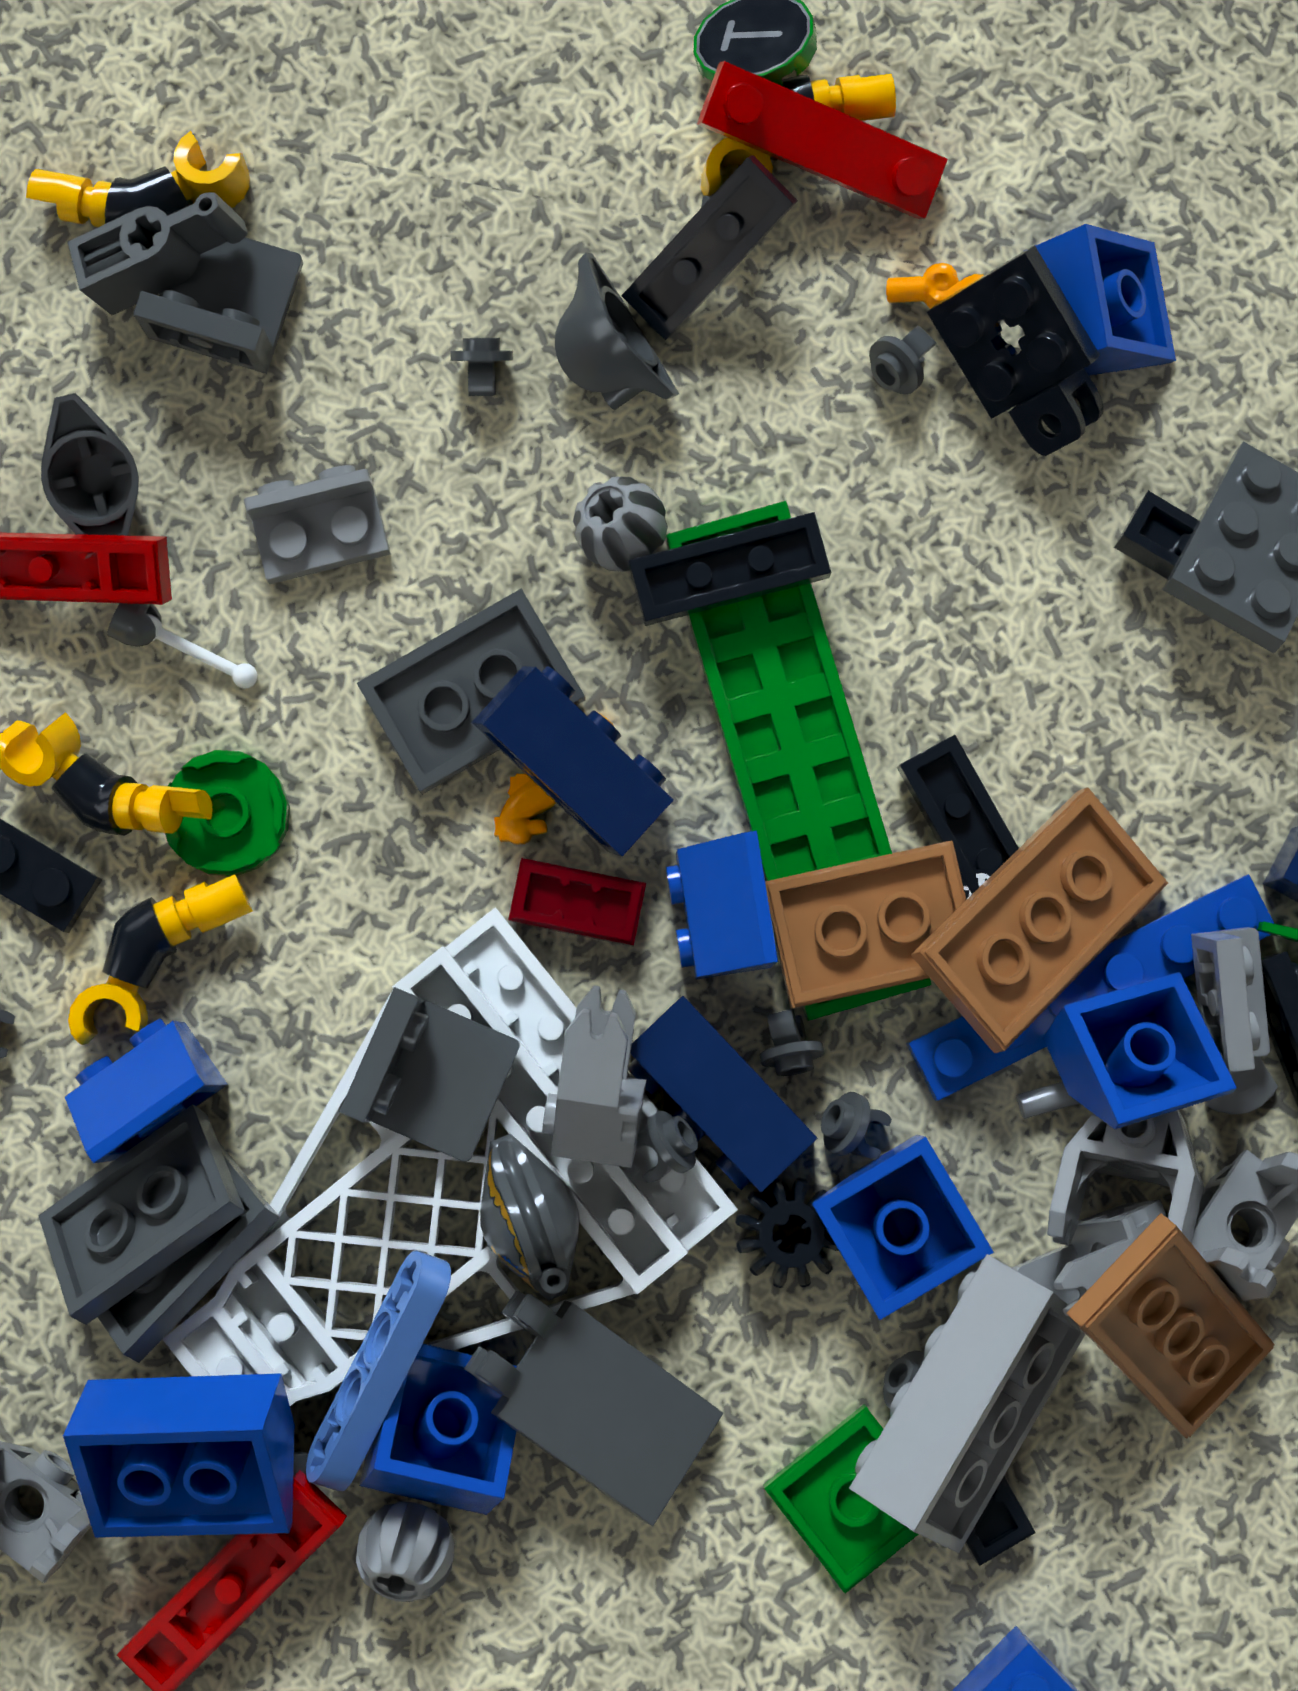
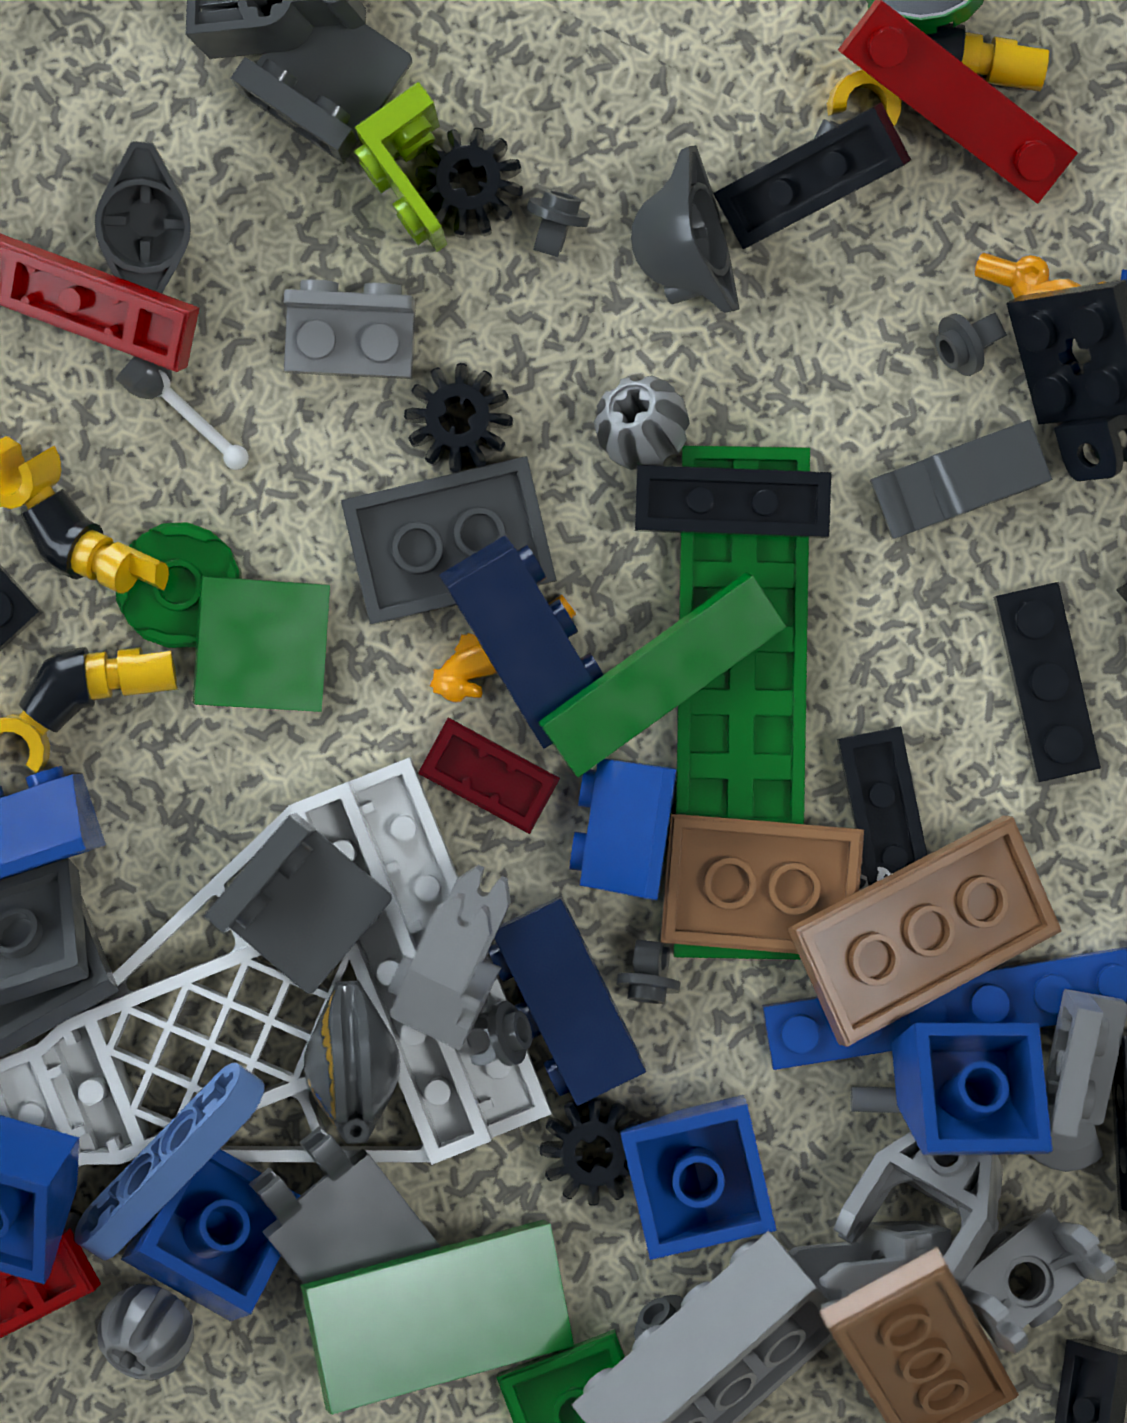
camera: 20 degrees right, 5 degrees up
(304, 329) = (404, 130): none -> lime bracket
(320, 842) = (261, 644): none -> green tile
(401, 334) = (482, 164): none -> black gear
(421, 579) = (437, 413): none -> black gear
(687, 1444) = (437, 1316): none -> tile
(713, 751) = (662, 674): none -> green tile
(846, 1124) = (680, 1064): dark grey plate -> none
(938, 487) = (961, 479): none -> dark grey piece
(1077, 654) = (1047, 682): none -> black plate

